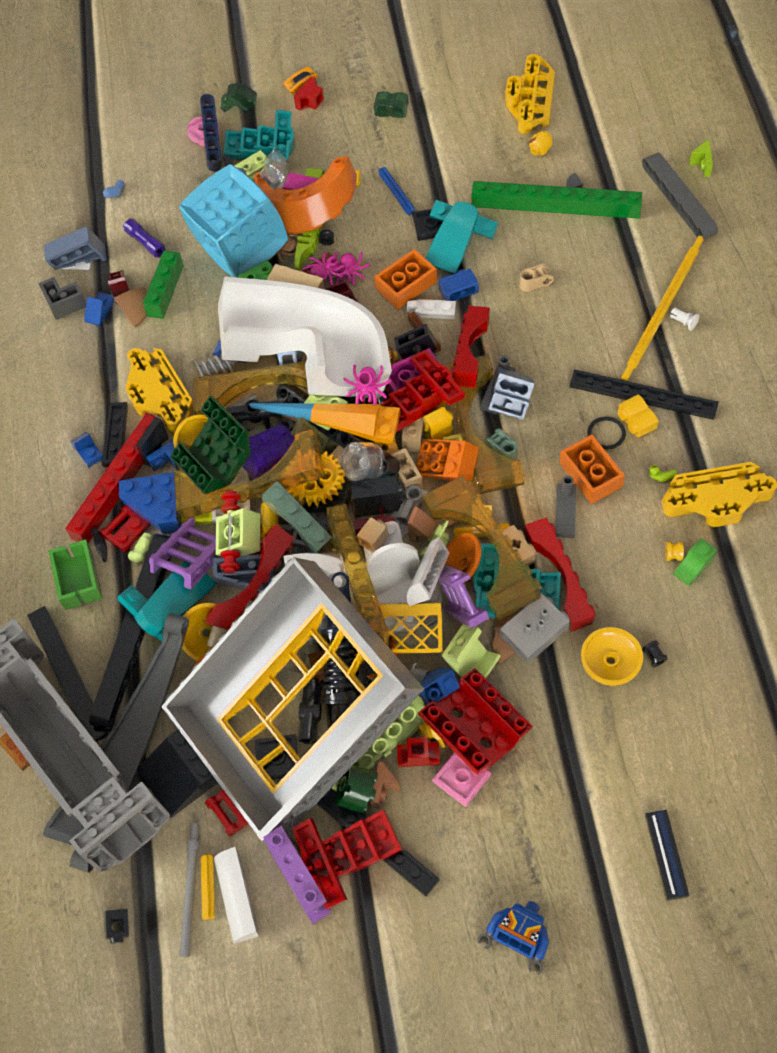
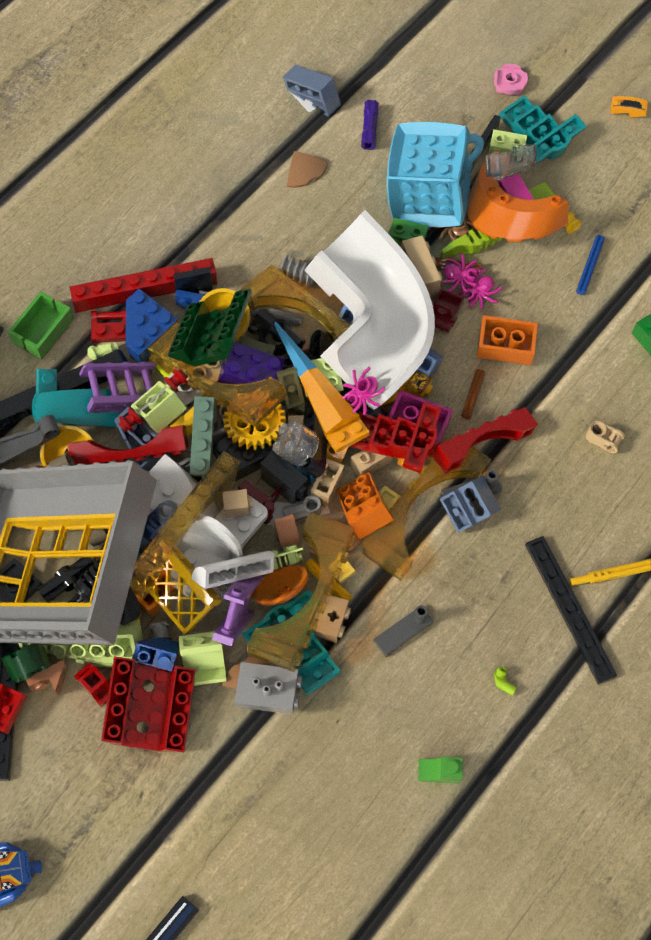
camera: 40 degrees right, 5 degrees up
(62, 300) = (260, 118): dark grey brick -> none
(87, 449) = (152, 244): blue slope -> none
(98, 308) = (279, 148): blue slope -> none
(99, 543) = (83, 320): black bar -> none
(114, 191) = (393, 68): medium blue arm -> none
(114, 431) = (185, 249): black tile -> none
(117, 283) = (311, 140): dark red slope -> none
(154, 393) = (239, 245): yellow connector -> none
(163, 284) = (339, 173): green brick -> none
(210, 139) = (510, 79): dark blue beam -> none
(238, 95) = (565, 77): clear green brick -> none
(309, 95) = (619, 125): red brick -> none
(326, 241) = (493, 250): black bush -> none
(415, 341) = (451, 395): black brick -> none
(424, 225) = (584, 316): black tile -> none
(432, 308) = (502, 382): white hinge -> none
(438, 424) = (389, 473): yellow brick -> none
(456, 233) = (587, 343): teal slope -> none
(458, 285) = (540, 384): blue brick -> none
(460, 780) = (91, 734): bright pink plate -> none
(501, 444) = (418, 534): sand green piece -> none
(543, 538) = (318, 705): red arch -> none
(591, 469) = (455, 622): orange brick -> none
(613, 645) = (294, 752): yellow dish -> none
(615, 421) = (501, 623): black piece -> none
(637, 416) = (542, 620): yellow brick -> none
(654, 653) = (329, 799): black bush -> none
(674, 551) = (436, 745): yellow wheel -> none
(719, 502) = (521, 744): yellow connector -> none

